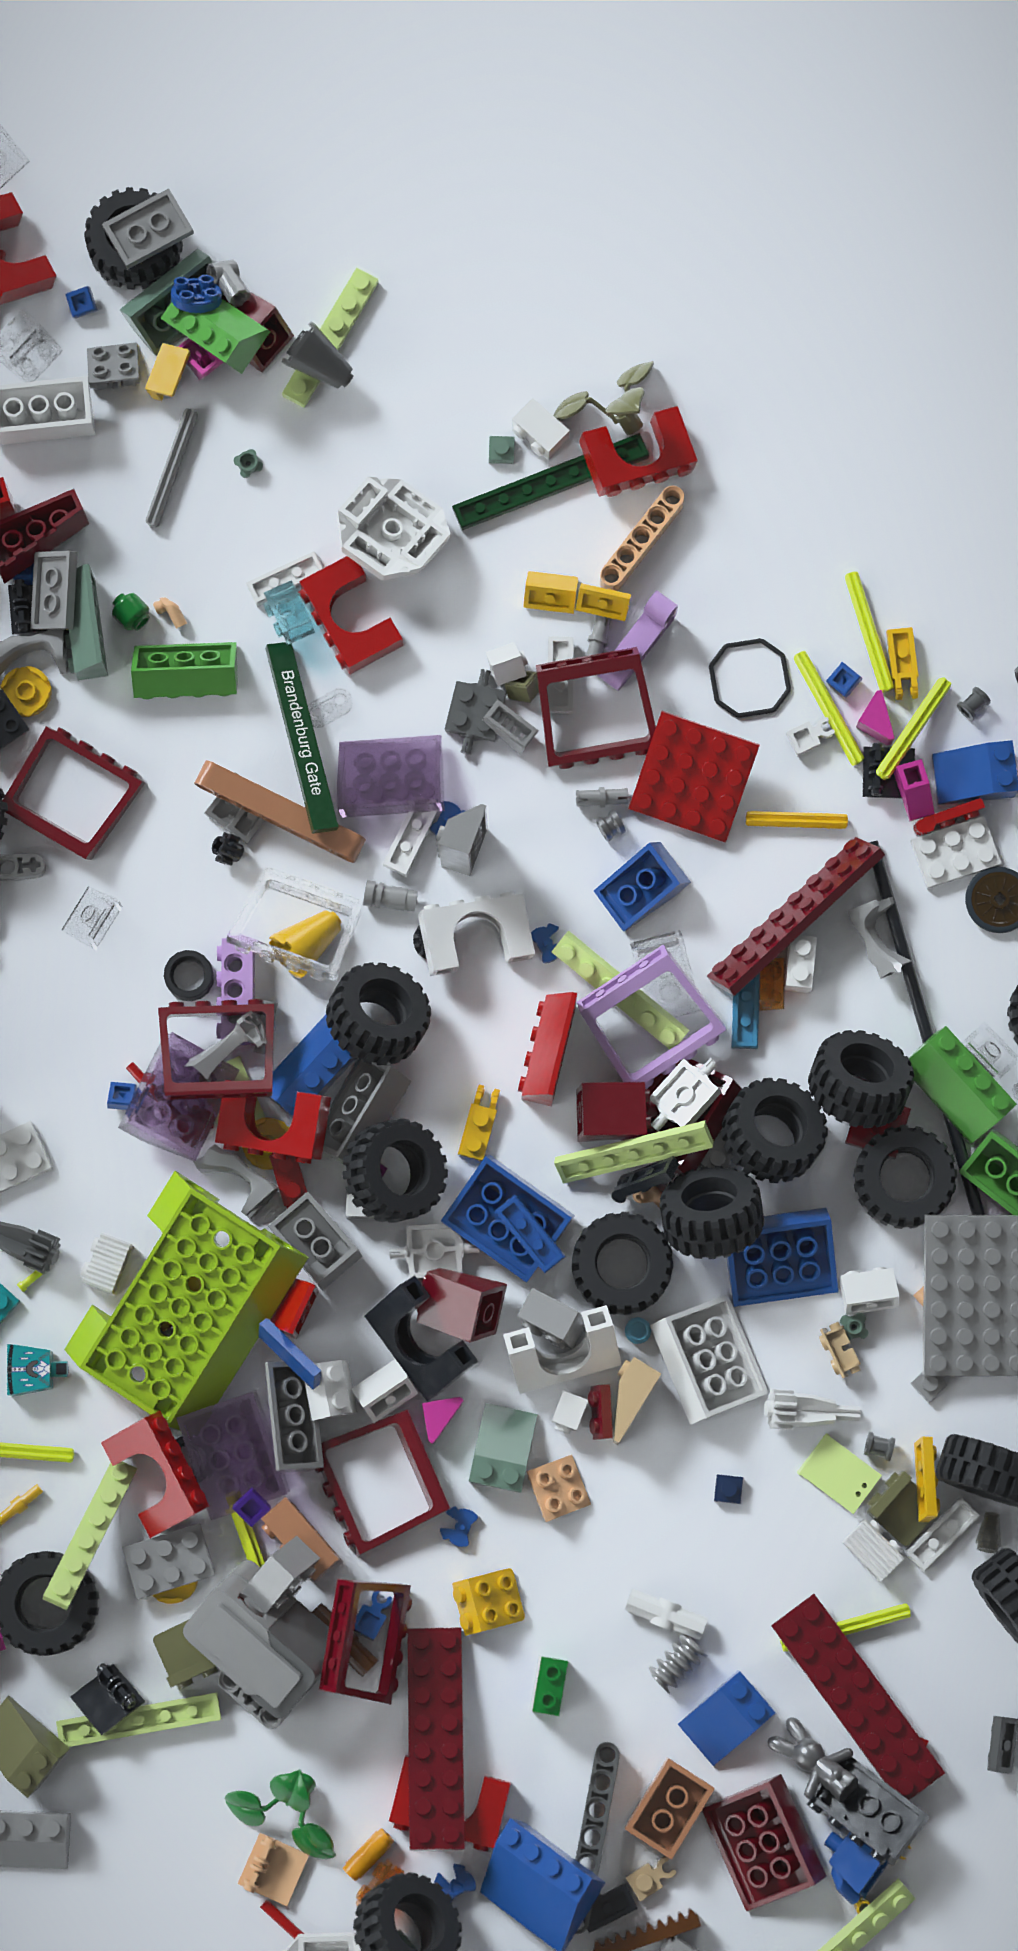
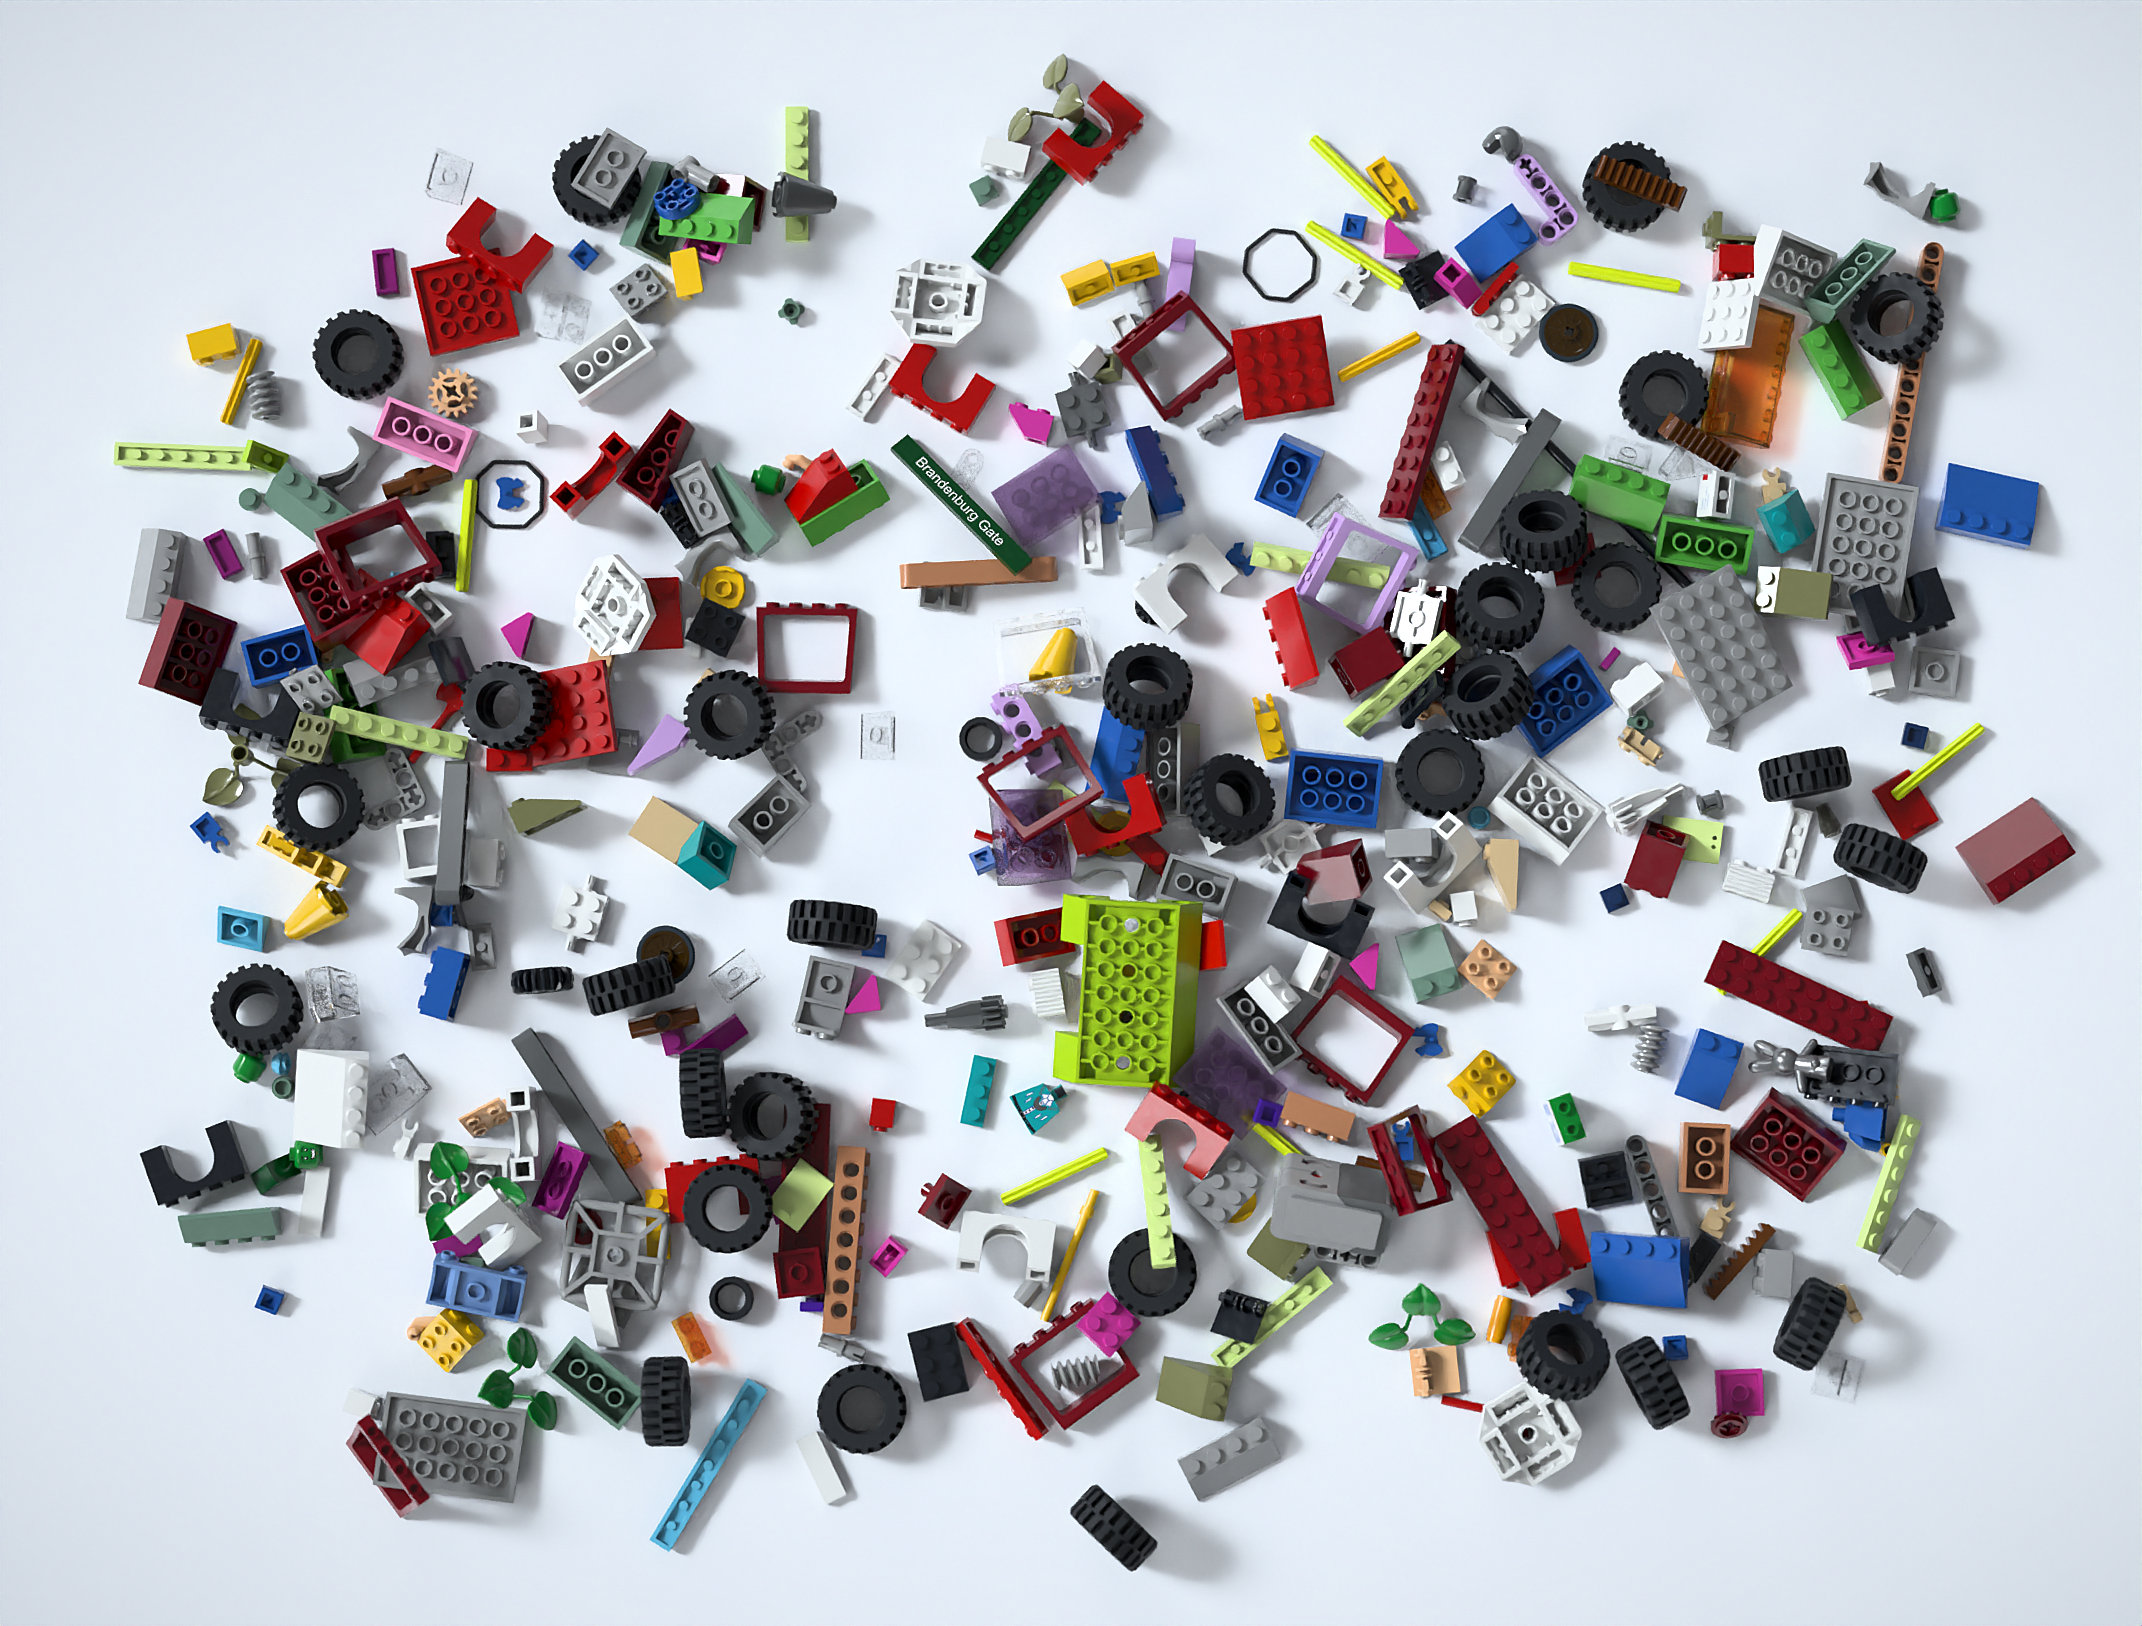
camera: 25 degrees left, 5 degrees up
(29, 1280) = (992, 1046): neon yellow piece -> none
(122, 1198) = (1031, 937): none -> red slope
(171, 467) = (733, 348): light grey axle -> none
(176, 643) = (820, 487): none -> red slope
(227, 848) = (954, 624): black gear -> none
(248, 1029) = (1055, 755): light grey animal -> none
(282, 1575) = (1323, 1149): light grey brick -> none
(286, 599) = (887, 402): clear light blue brick -> none
(289, 1353) = (1231, 982): blue tile -> none
(390, 897) = (1101, 591): light grey axle -> none
(417, 698) = (1032, 424): none -> dark pink slope
(508, 810) = (1153, 470): none -> blue slope
(522, 725) = (1125, 416): light grey slope -> none
(530, 1233) = (1358, 789): blue tile -> none
(546, 1400) = (1440, 909): none -> tan plate
(557, 1771) = (1605, 1179): none -> black slope
(600, 1403) = (1486, 893): dark red plate -> none
(610, 825) = (1239, 441): flat silver wheel -> none
(647, 528) = (1135, 190): light nougat beam -> none
(792, 1473) = (1657, 859): none -> dark red slope
(858, 1010) = (1509, 480): none -> dark grey beam
(858, 1245) = (1609, 659): none -> magenta tile
(898, 1508) = (1752, 839): olive bracket -> none
(913, 728) = (1430, 235): neon yellow axle -> none
(926, 1479) = (1759, 807): yellow plate -> none
(926, 1644) = (1827, 929): none -> light grey hinge
(946, 1619) = (1833, 893): none -> light grey slope

